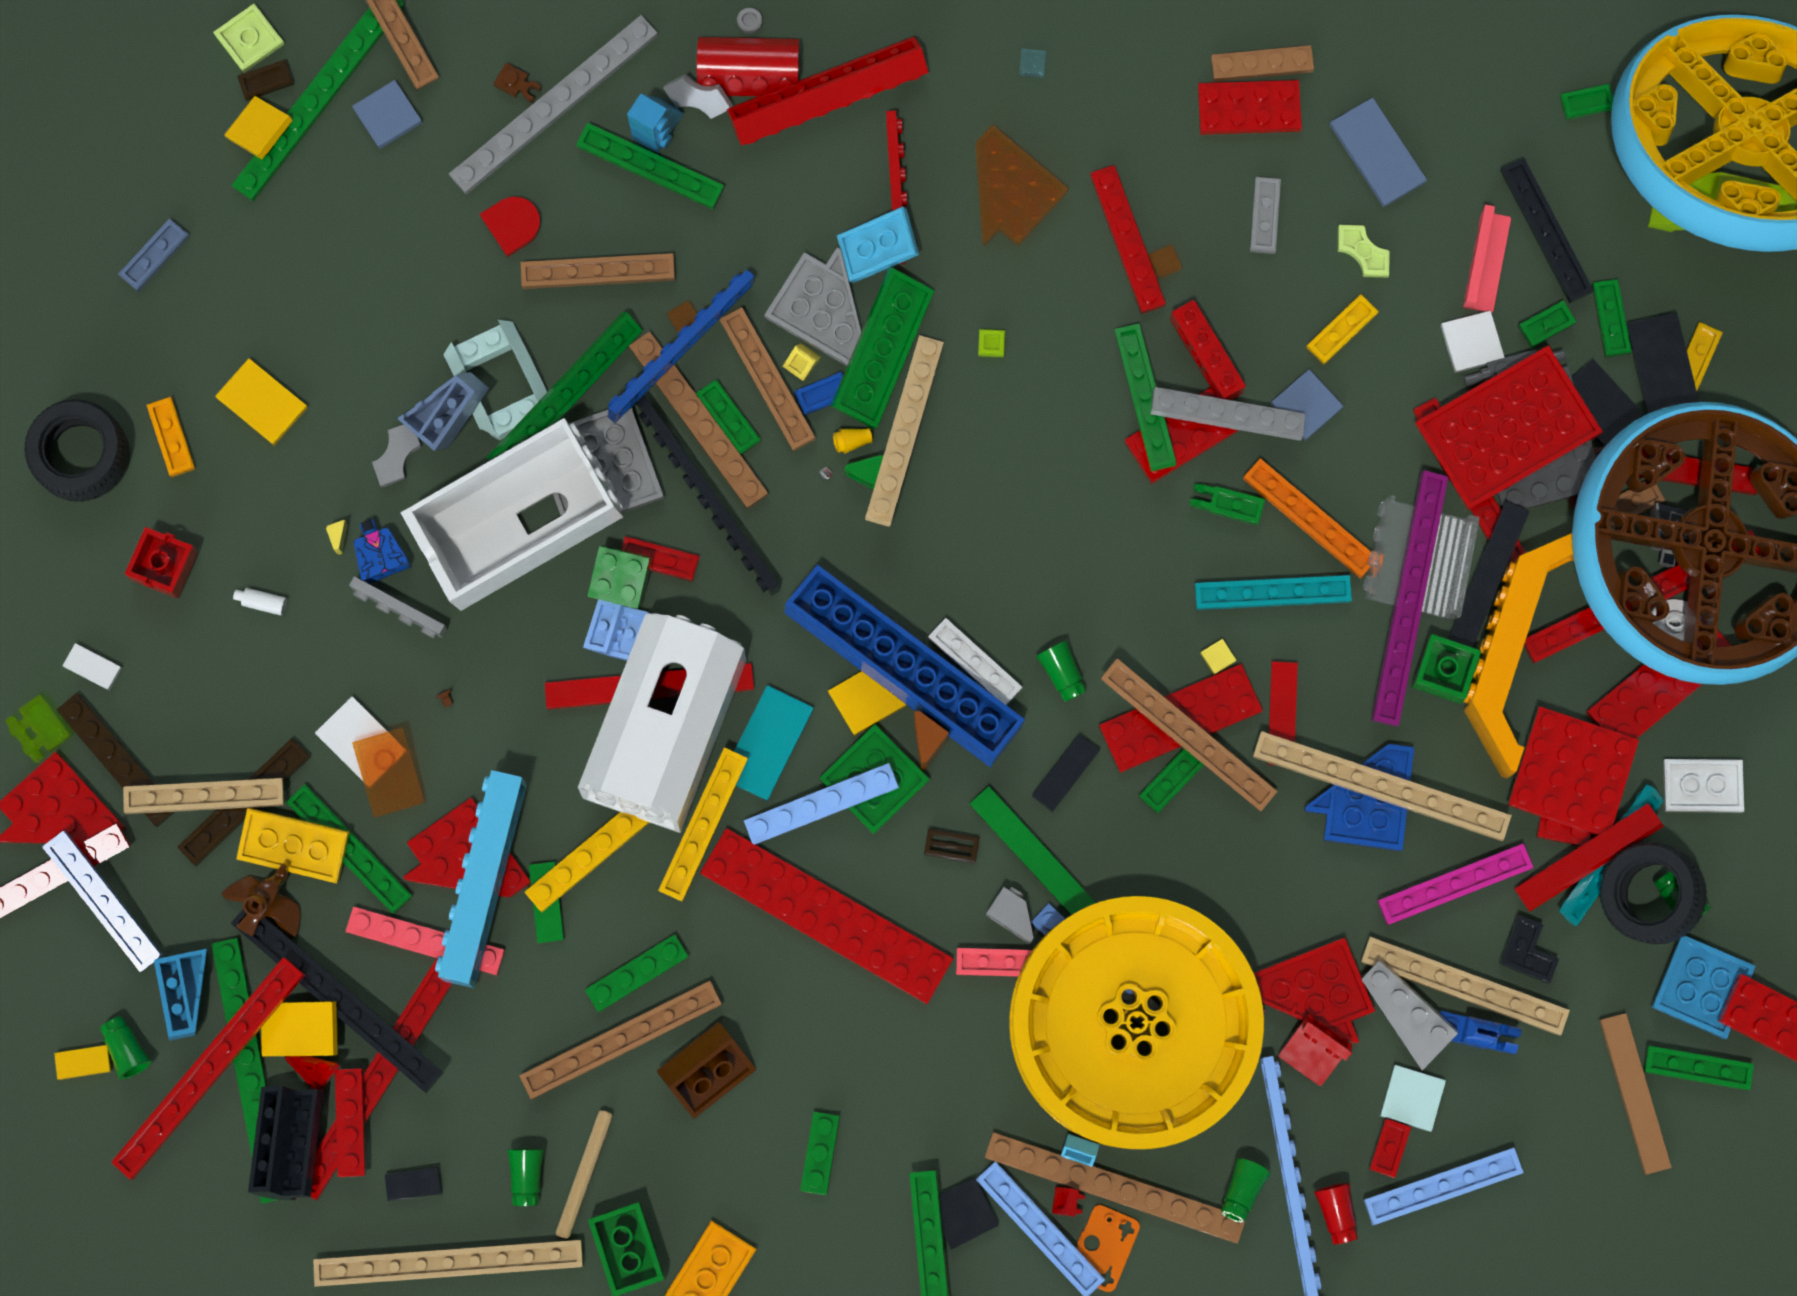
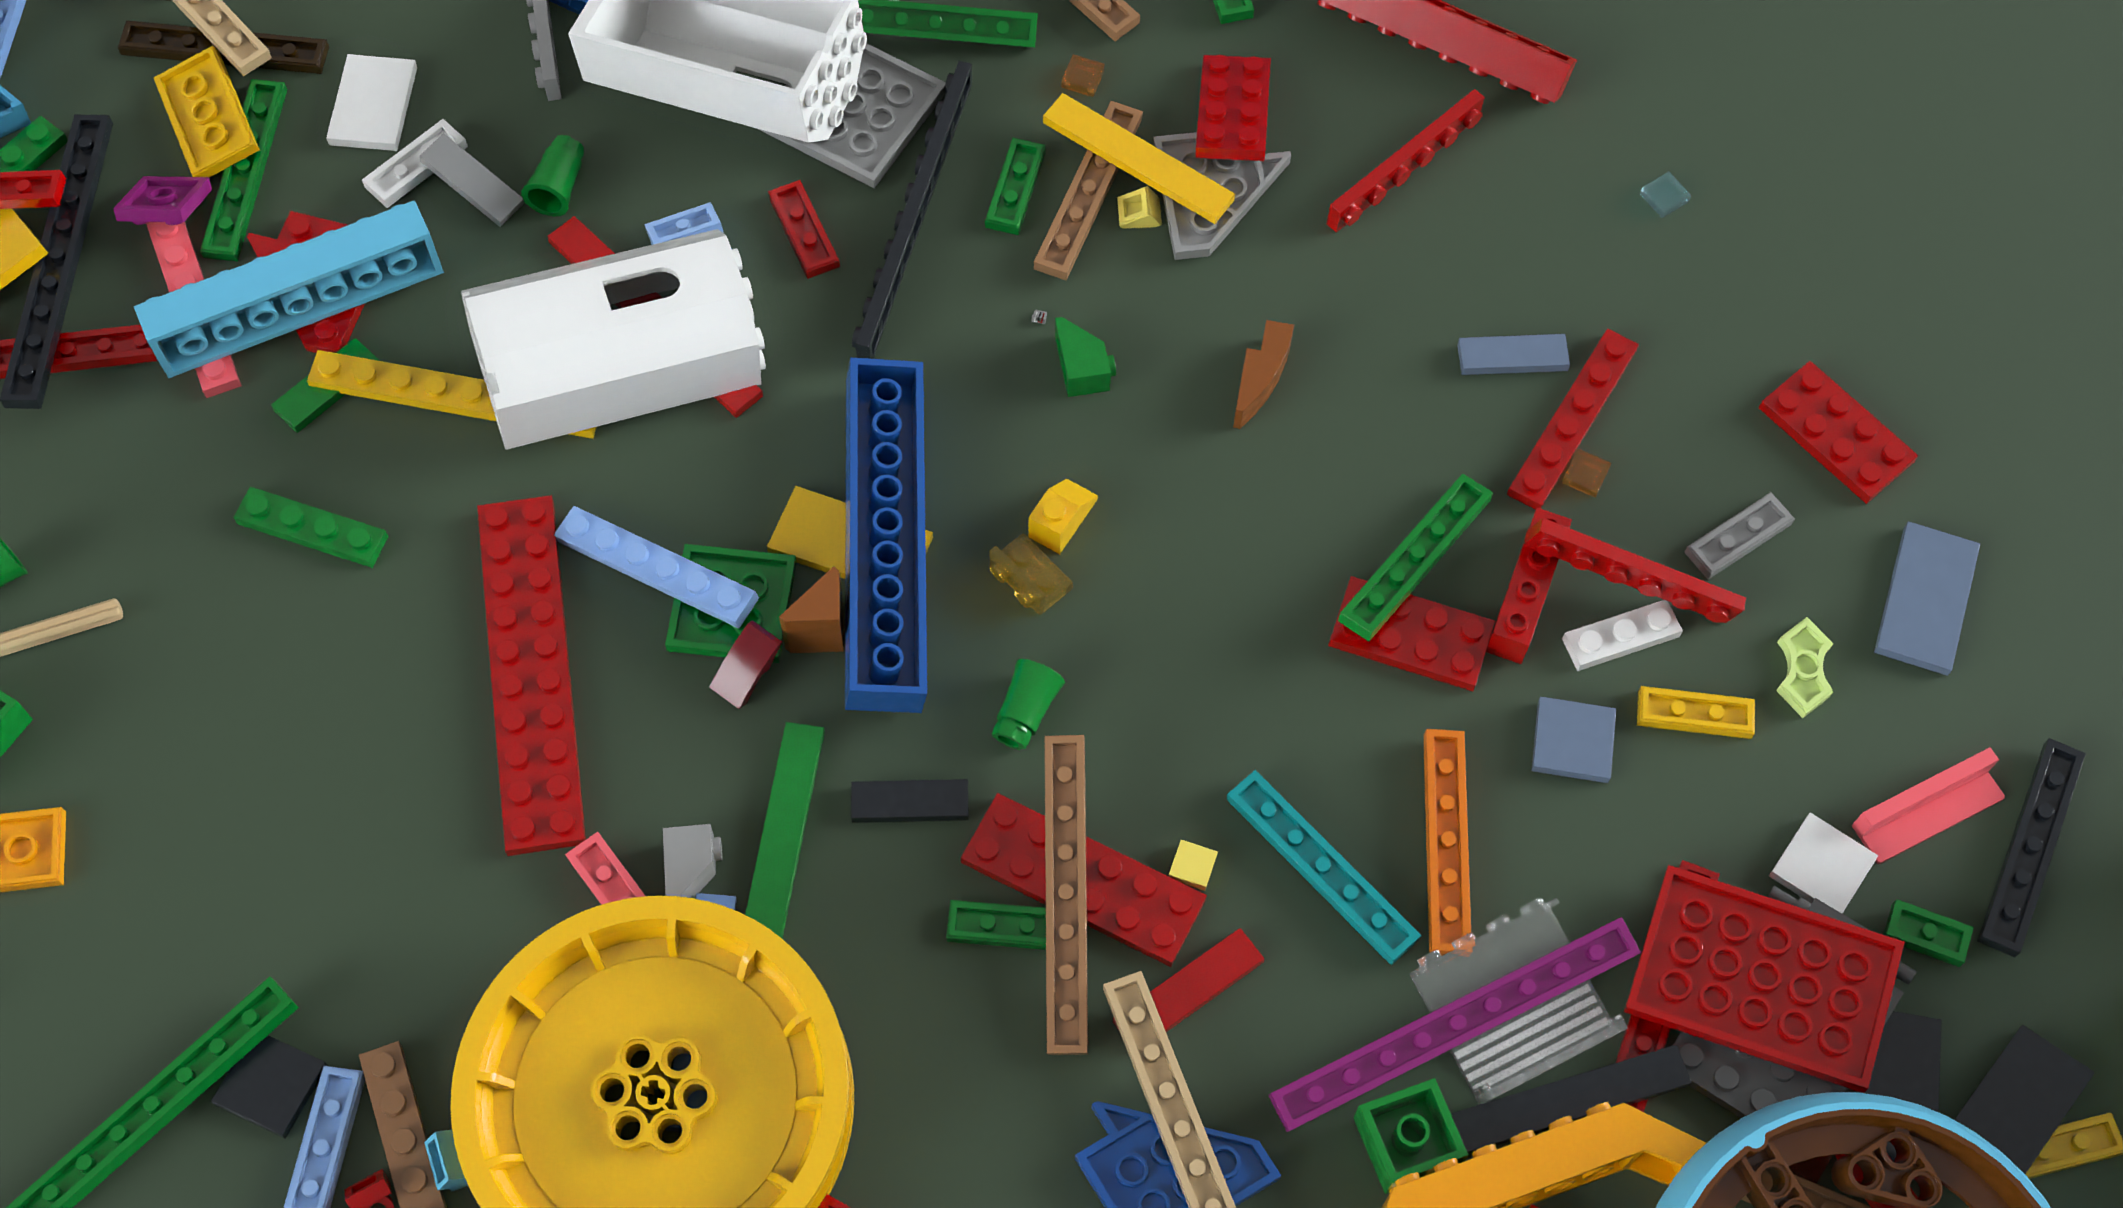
camera: 50 degrees right, 15 degrees down
(264, 900) = (121, 122): reddish brown animal -> none
(342, 911) = (162, 199): none -> magenta plate
(388, 772) = (354, 140): clear orange tile -> none
(430, 747) = (404, 169): none -> white plate
(445, 698) = (483, 143): reddish brown piece -> none
(472, 724) = (471, 180): none -> light grey tile
(509, 674) = (554, 177): none -> green plant
(620, 576) = (748, 198): green brick -> none
(620, 1040) = (218, 562): medium nougat plate -> none
(686, 339) = (1045, 78): blue plate -> none
(702, 425) = (985, 164): medium nougat plate -> none
(703, 824) = (534, 467): yellow plate -> none
(706, 1070) = (242, 672): reddish brown slope -> none
(770, 740) = (684, 470): teal tile -> none
(774, 336) = (1139, 158): none -> yellow tile
(782, 254) = (1233, 108): none -> red plate
(819, 394) = (1123, 253): blue tile -> none
(819, 1153) = (231, 867): green plate -> none
(851, 439) = (1097, 310): yellow cone -> none
(877, 245) = (1328, 181): medium azure tile -> none
(882, 348) = (1222, 265): green plate -> none
(904, 431) = (1146, 346): tan plate -> none
(923, 799) = (745, 664): none -> dark red slope
(929, 842) = (733, 769): dark brown tile -> none
(963, 560) = (1060, 514): none -> yellow slope
(964, 381) = (1262, 370): none -> dark orange slope
(974, 662) = (956, 609): white plate -> none
(984, 606) = (1030, 573): none -> clear yellow bracket
(991, 343) = (1330, 370): lime tile -> none
(1012, 188) = (1513, 268): clear orange wing -> none
(1063, 236) = (1513, 354): none -> sand blue tile
(1227, 413) = (1480, 653): light grey plate -> none
(1229, 504) = (1382, 741): green hinge -> none
(1242, 300) = (1634, 570): none -> red plate
(1262, 63) = (1898, 409): medium nougat plate -> none
(1270, 328) = (1622, 635): none -> white plate
(1611, 318) = (2009, 1005): green tile -> none

